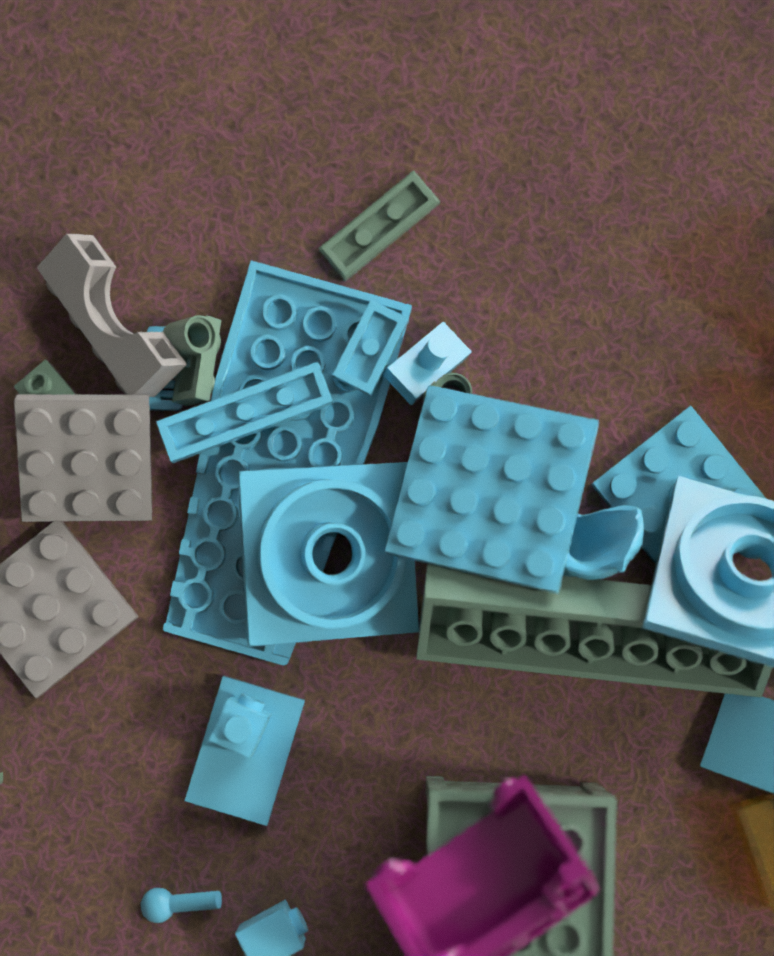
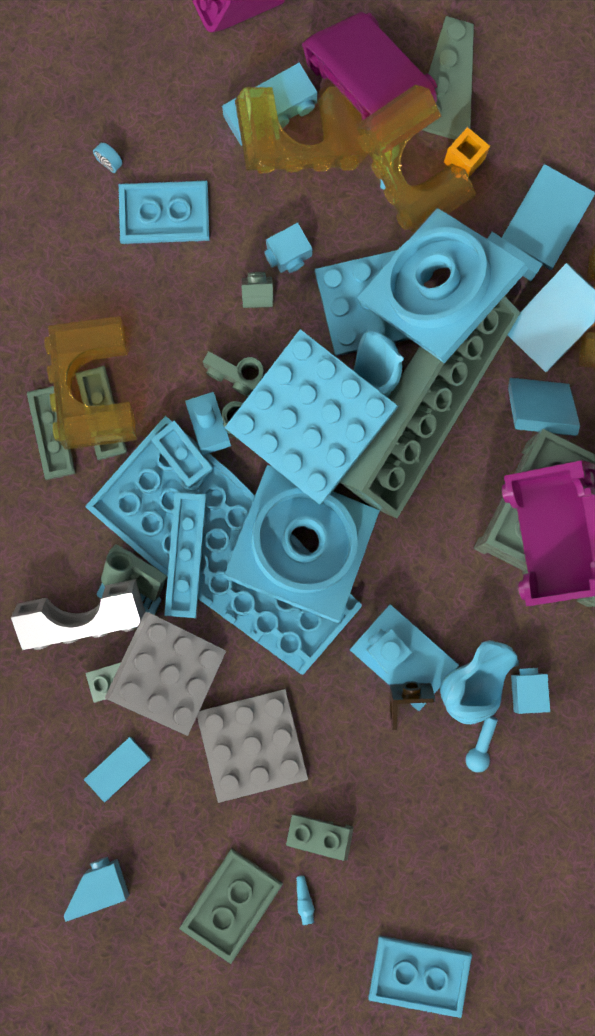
camera: 65 degrees left, 0 degrees up
(198, 779) = (408, 693): none -> dark brown bracket
(243, 862) = (475, 689): none -> medium azure piece
(325, 176) = (54, 458): none -> sand green tile
(438, 148) = (70, 348): none -> clear yellow arch
(503, 346) = (221, 369): none -> sand green plate
(626, 344) = (257, 290): none -> sand green plate
(650, 784) = (543, 406): none -> medium azure tile
(671, 183) = (164, 212): none -> medium azure tile
(699, 360) = (288, 249): none -> medium azure brick
(707, 80) = (108, 157): none -> medium azure tile

